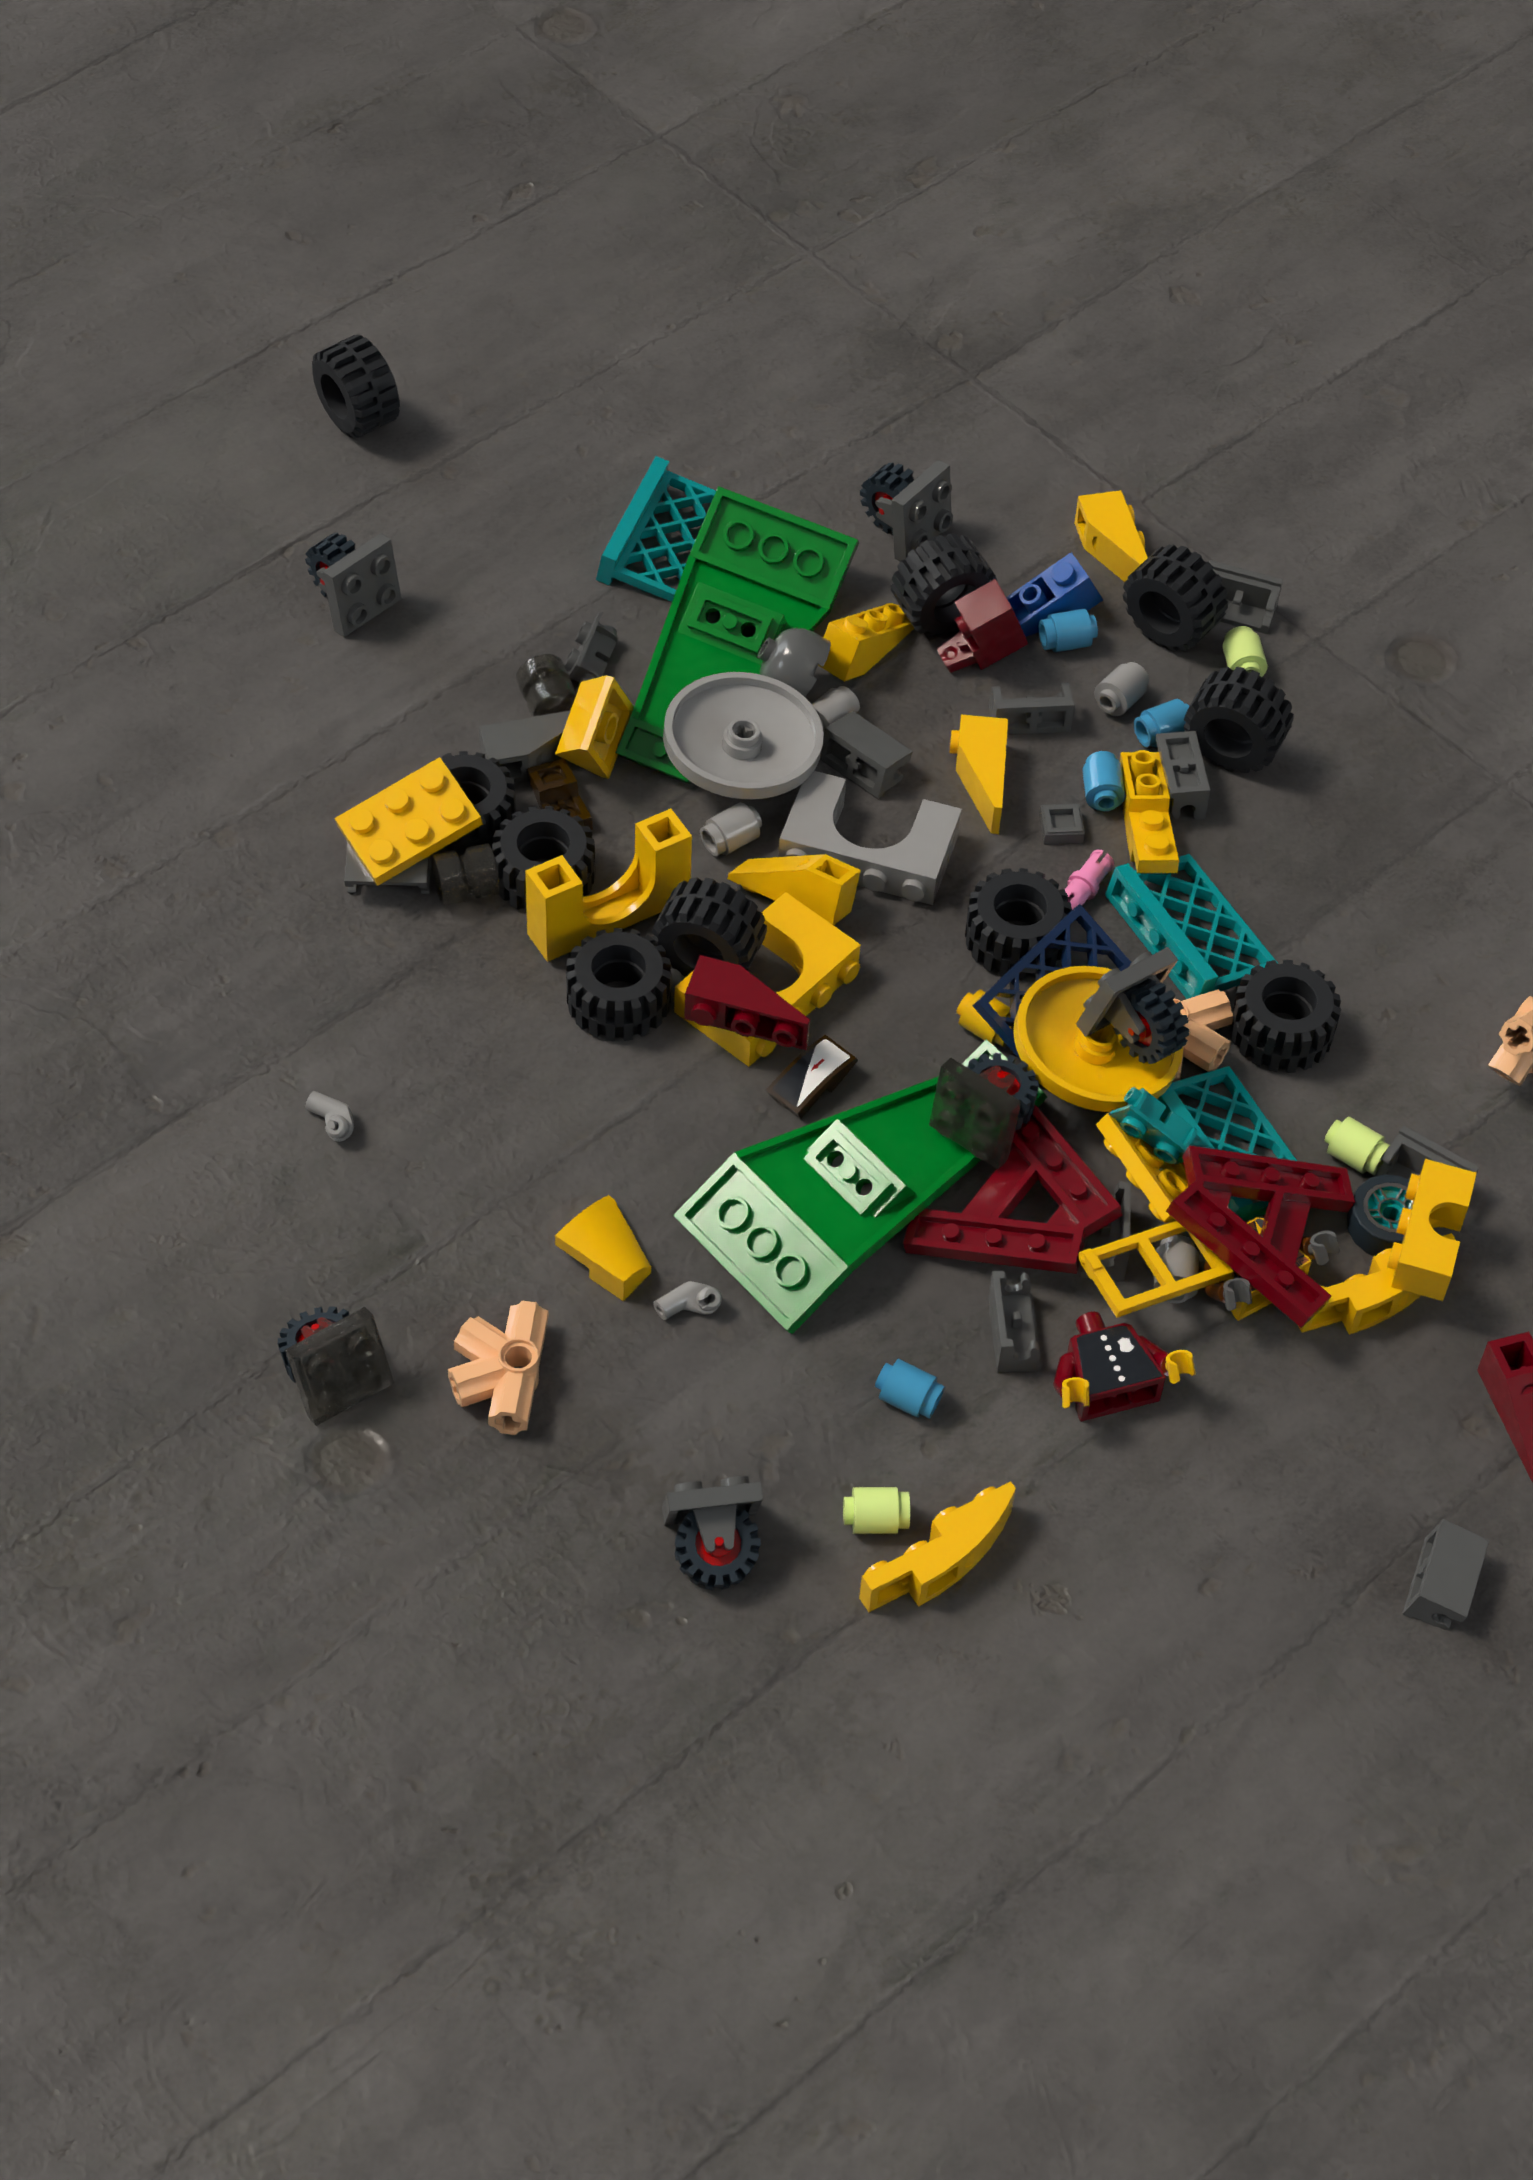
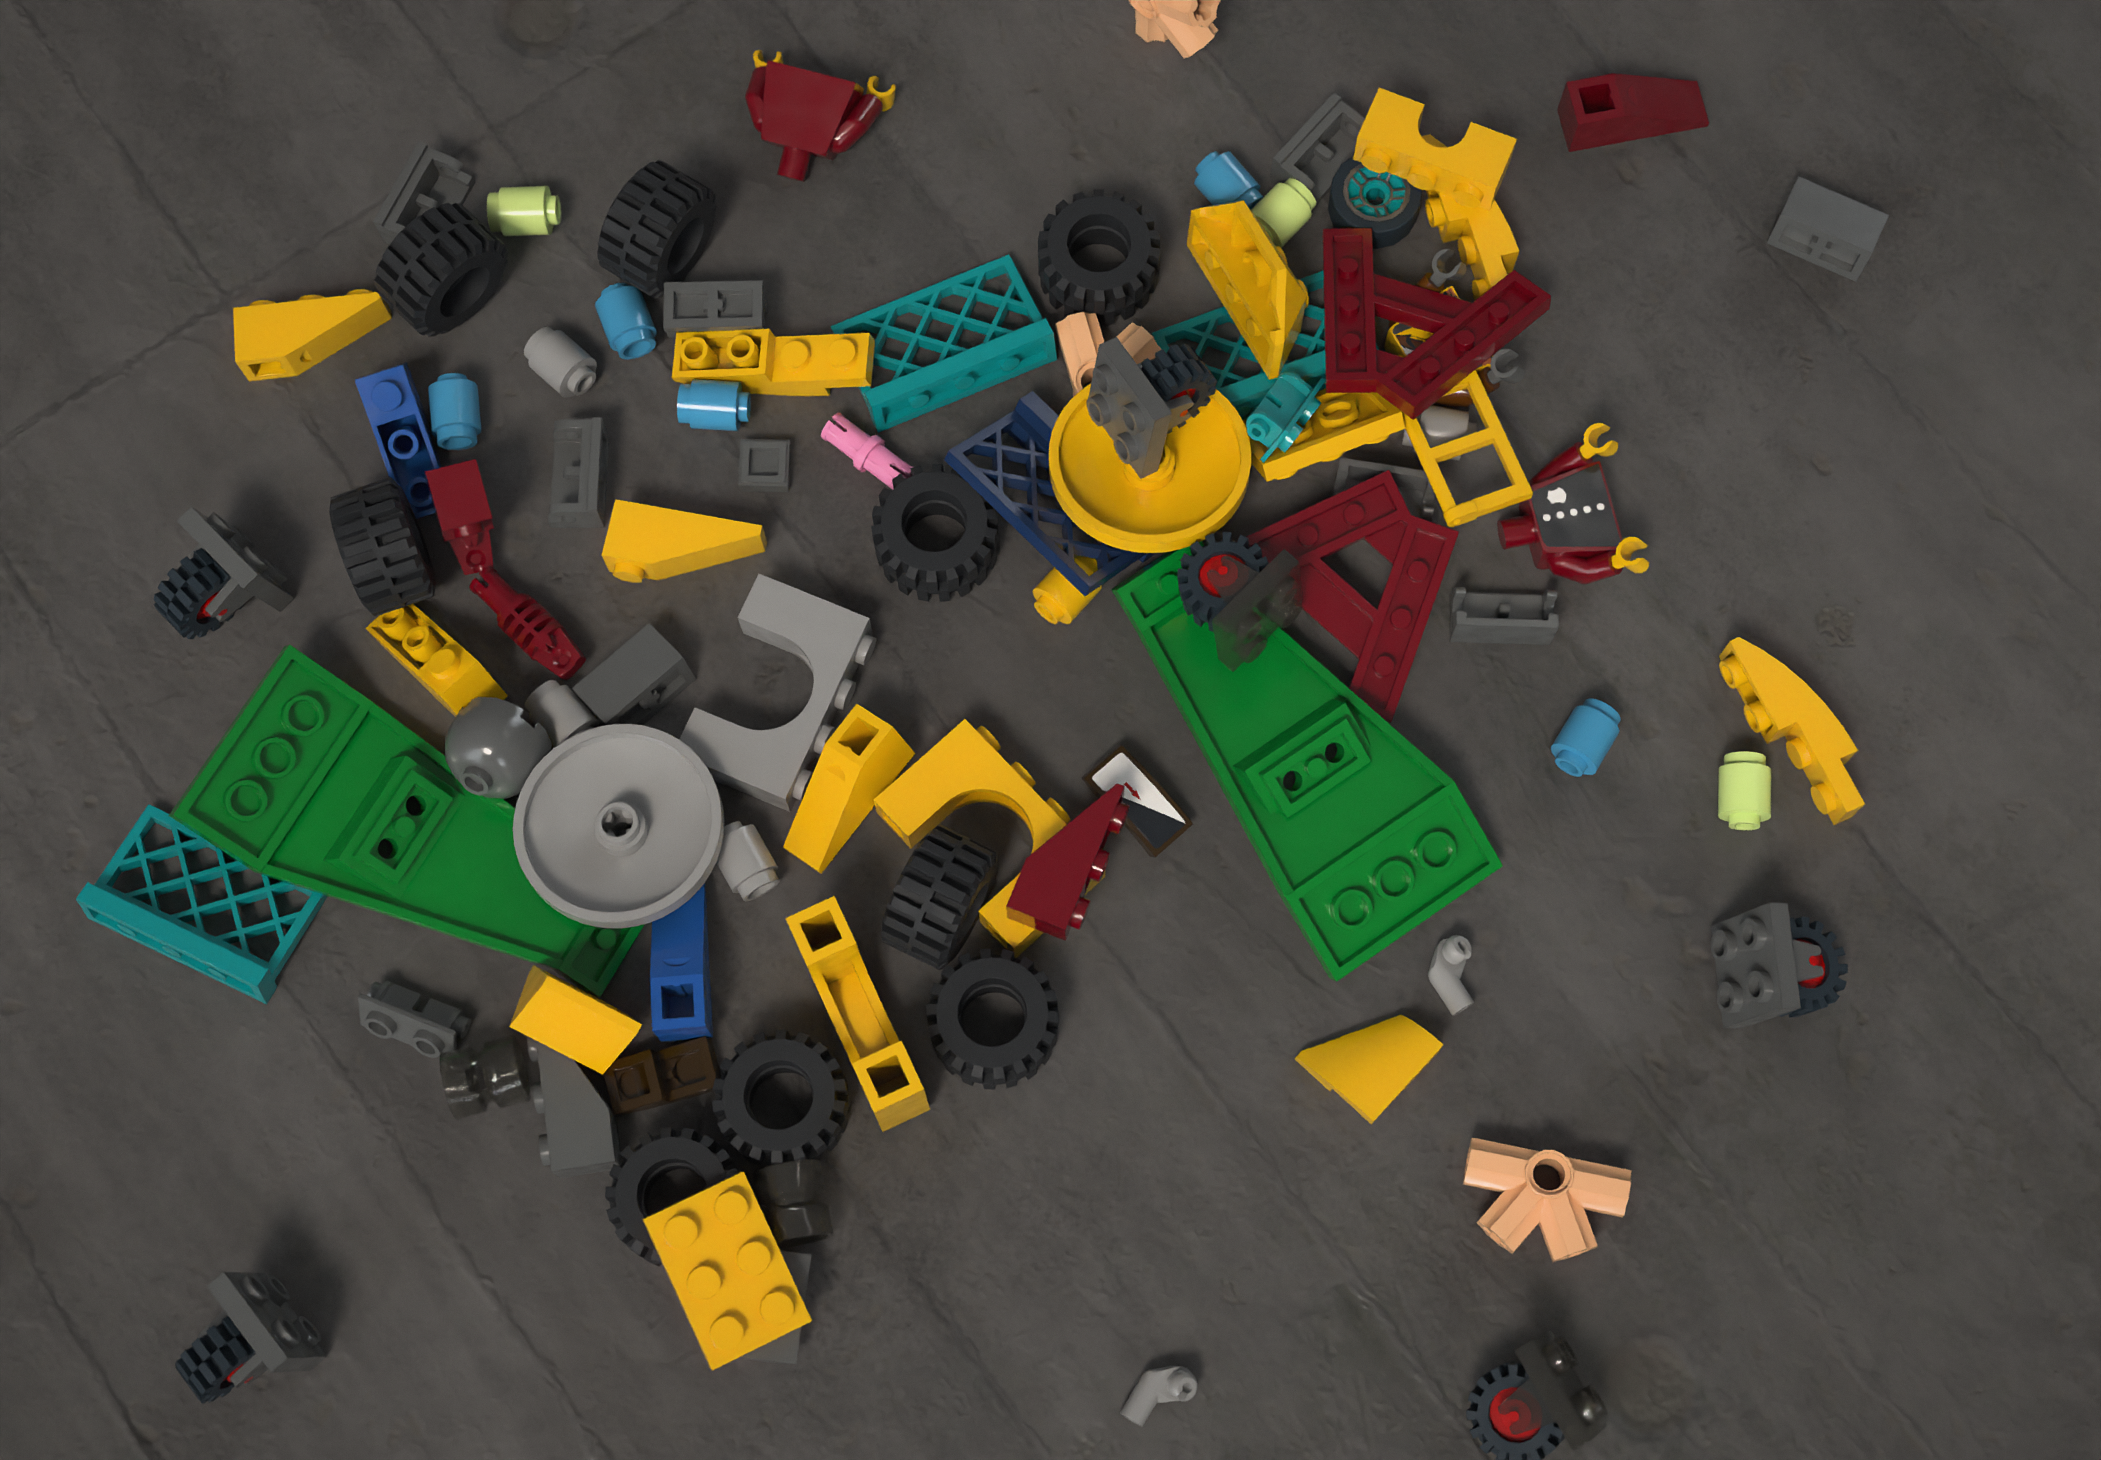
camera: 80 degrees left, 20 degrees up
(634, 792) = (681, 973): none -> blue slope
(903, 689) = (529, 625): none -> dark red hinge
(1276, 1118) = (1250, 280): none -> yellow wedge
(1372, 819) = (810, 112): none -> dark red torso
(1379, 1105) = (1226, 181): none -> dark azure brick

